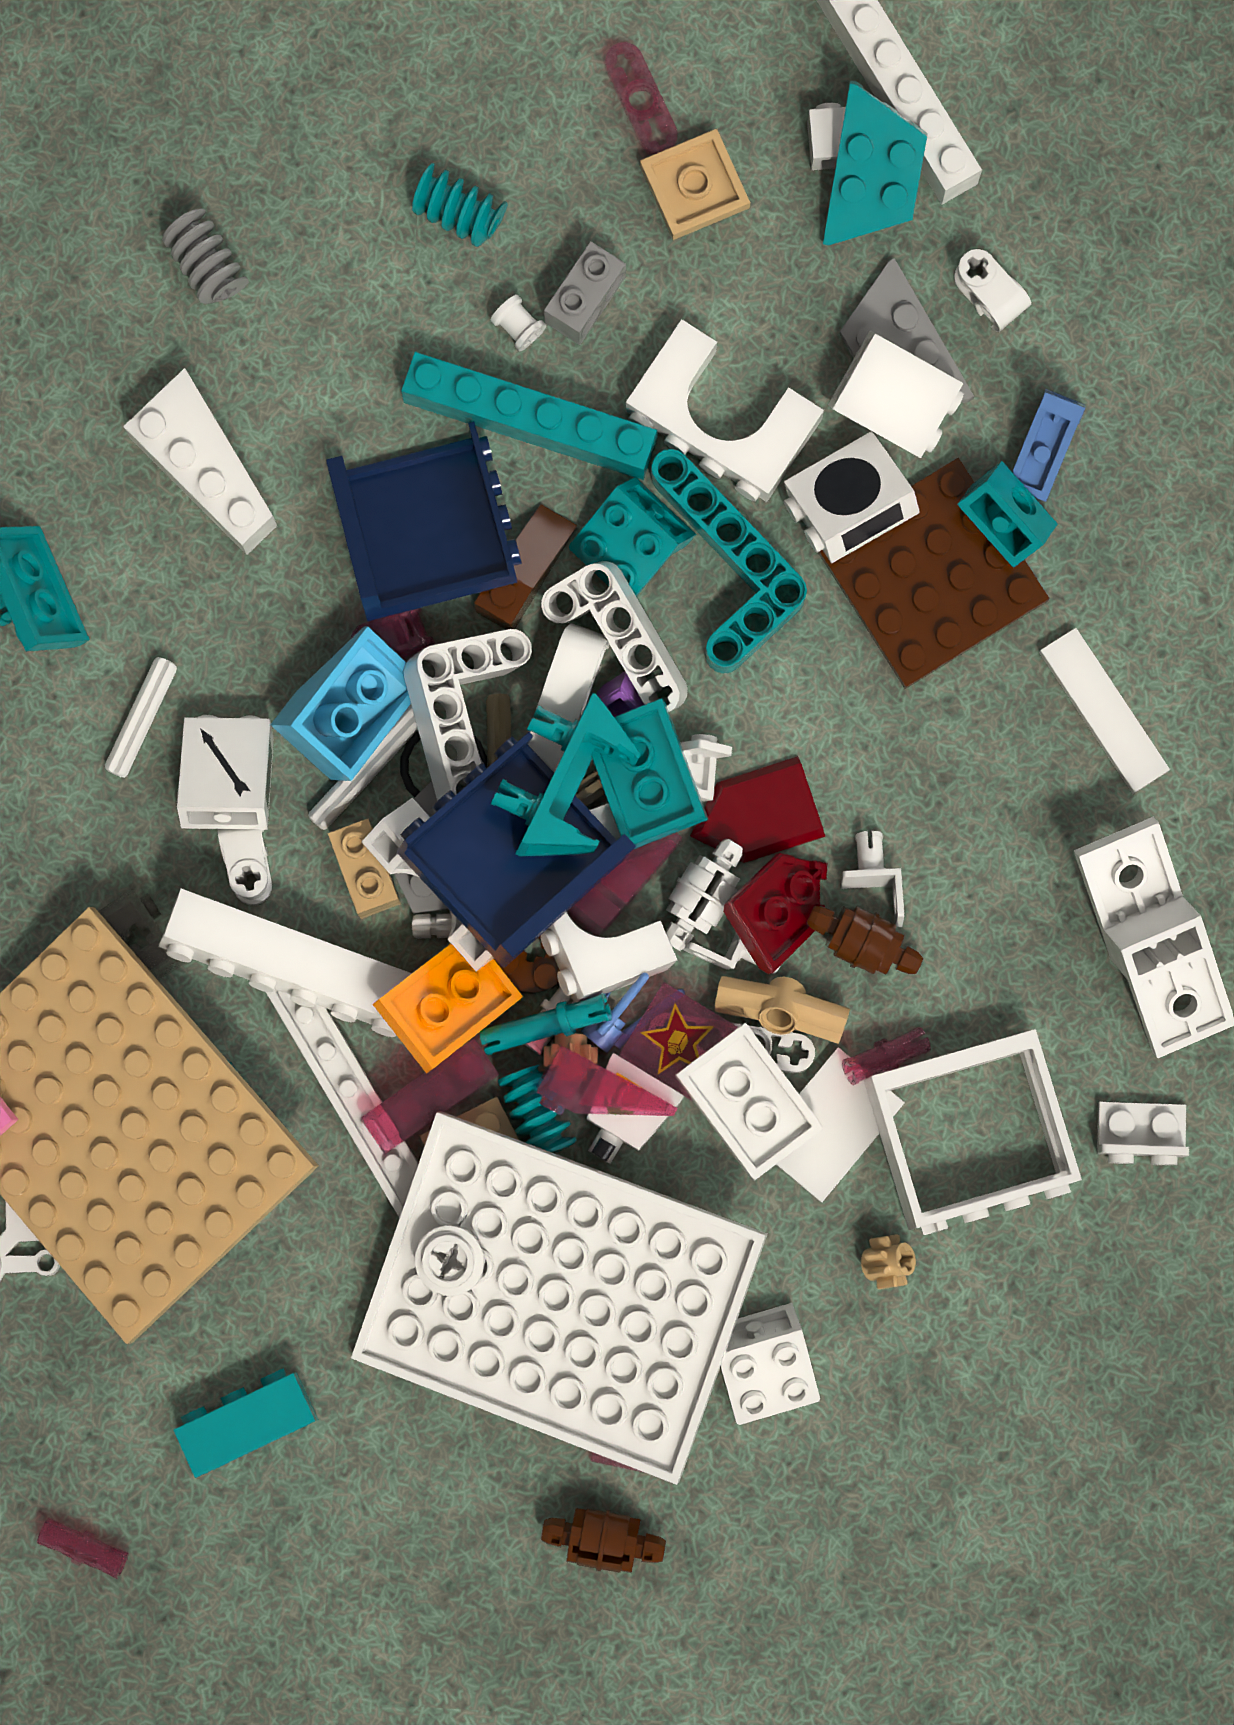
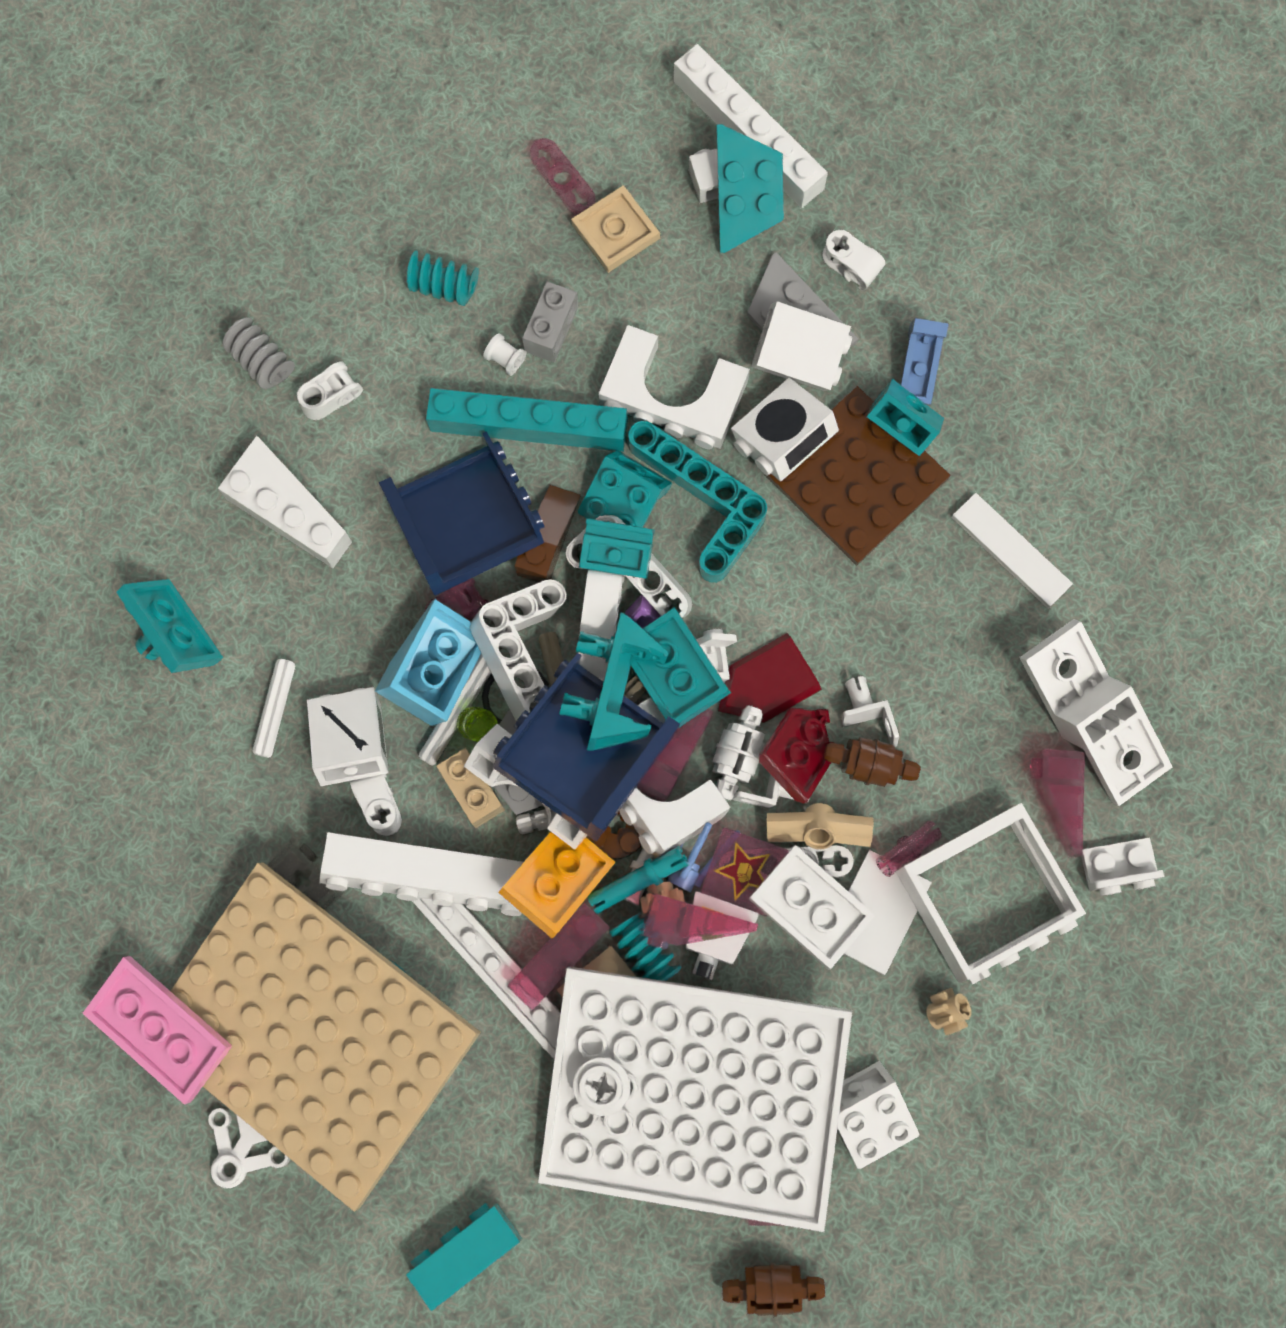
camera: 10 degrees left, 5 degrees down
(287, 323) = (329, 388): none -> white piece
(394, 795) = (483, 724): none -> clear neon green wheel
(605, 609) = (617, 548): none -> teal plate
(1090, 1023) = (1061, 789): none -> clear pink slope

